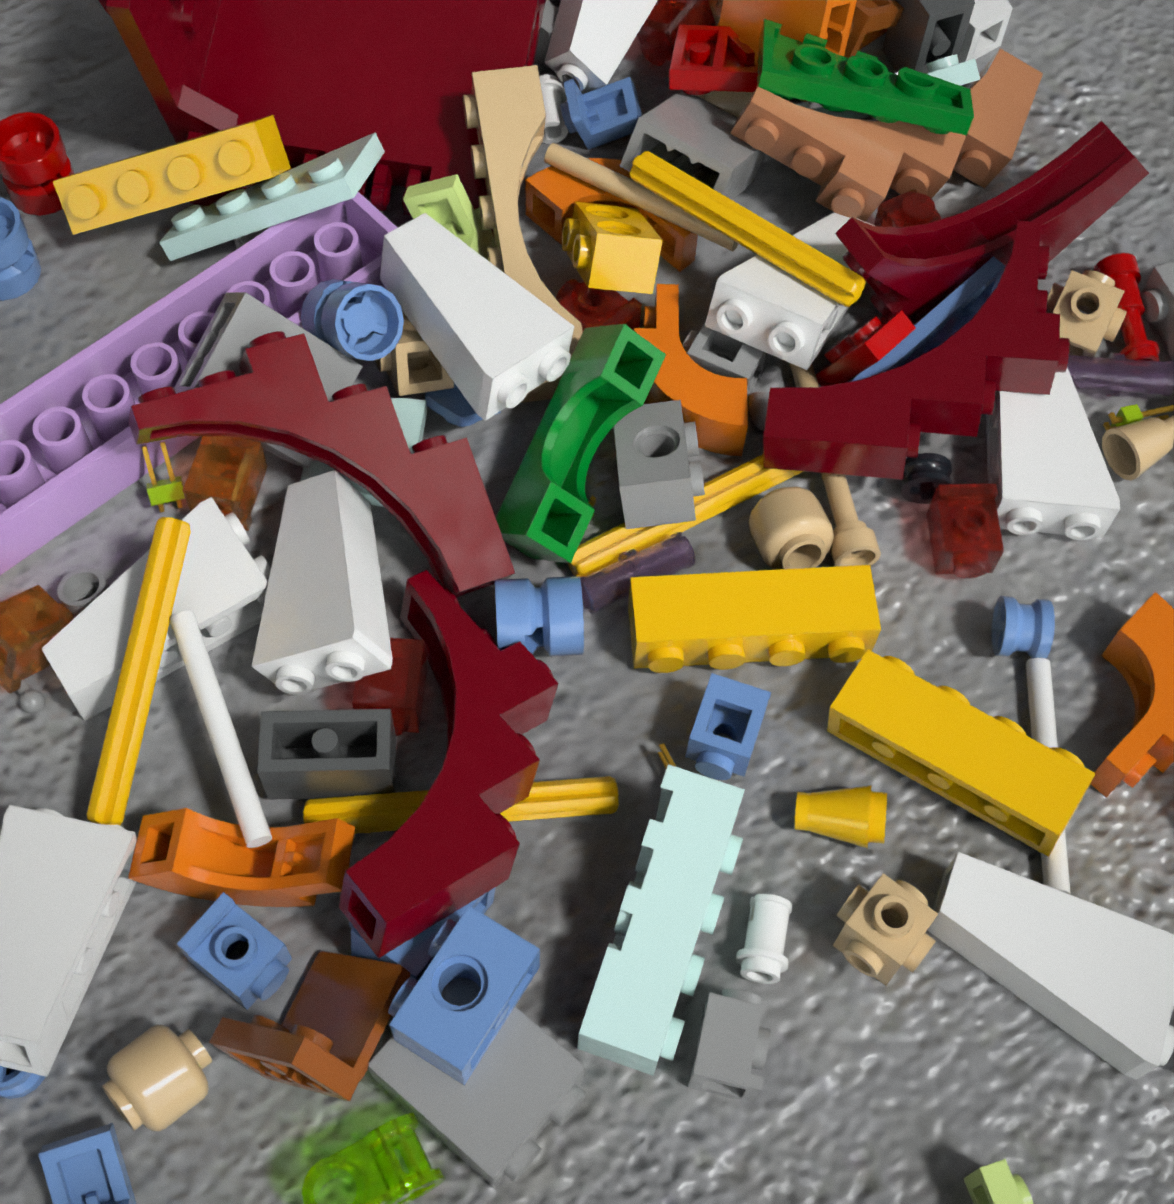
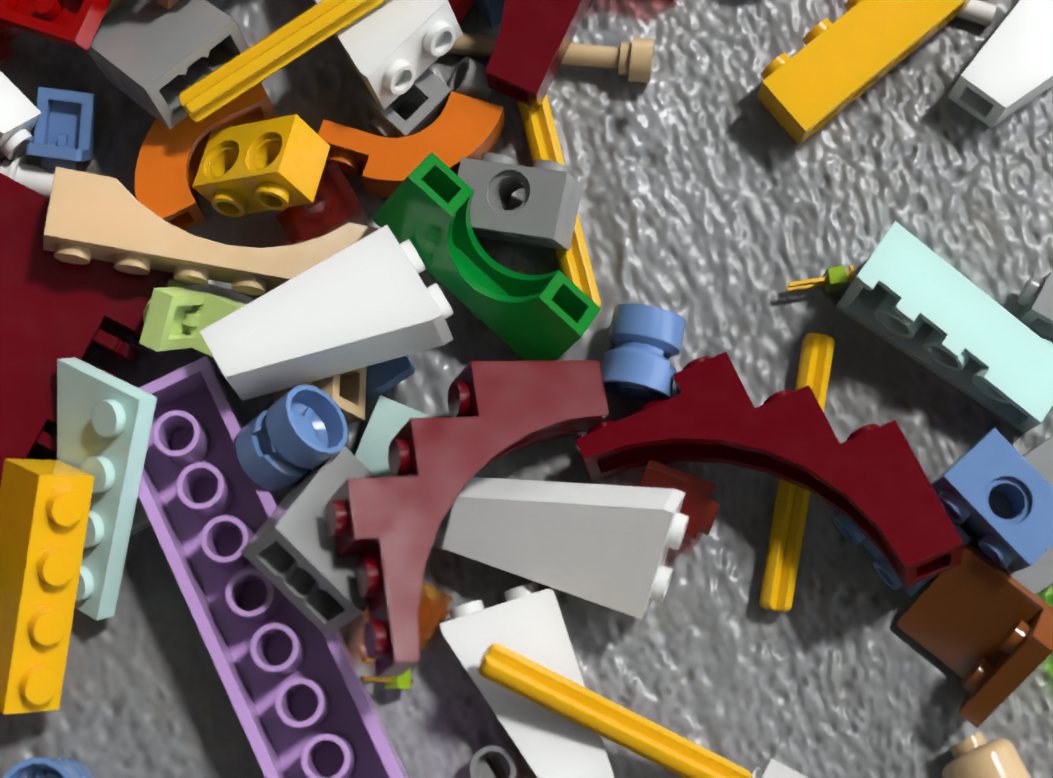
camera: 70 degrees left, 15 degrees up
(209, 856) = (813, 666): orange arch -> none
(217, 935) = (870, 696): medium blue brick -> none
(220, 730) = (692, 661): white bar -> none
(326, 753) = (735, 571): dark grey brick -> none
(614, 580) = (611, 254): clear purple pin -> none
(631, 192) = (188, 139): tan bar -> none
(731, 710) = (791, 206): medium blue brick -> none
(752, 617) = (689, 170): yellow brick -> none
(765, 939) = (979, 254): white pin -> none
(791, 529) = (610, 107): tan head -> none
(844, 814) = (889, 154): yellow cone -> none
(885, 928) = (1001, 156): tan brick -> none

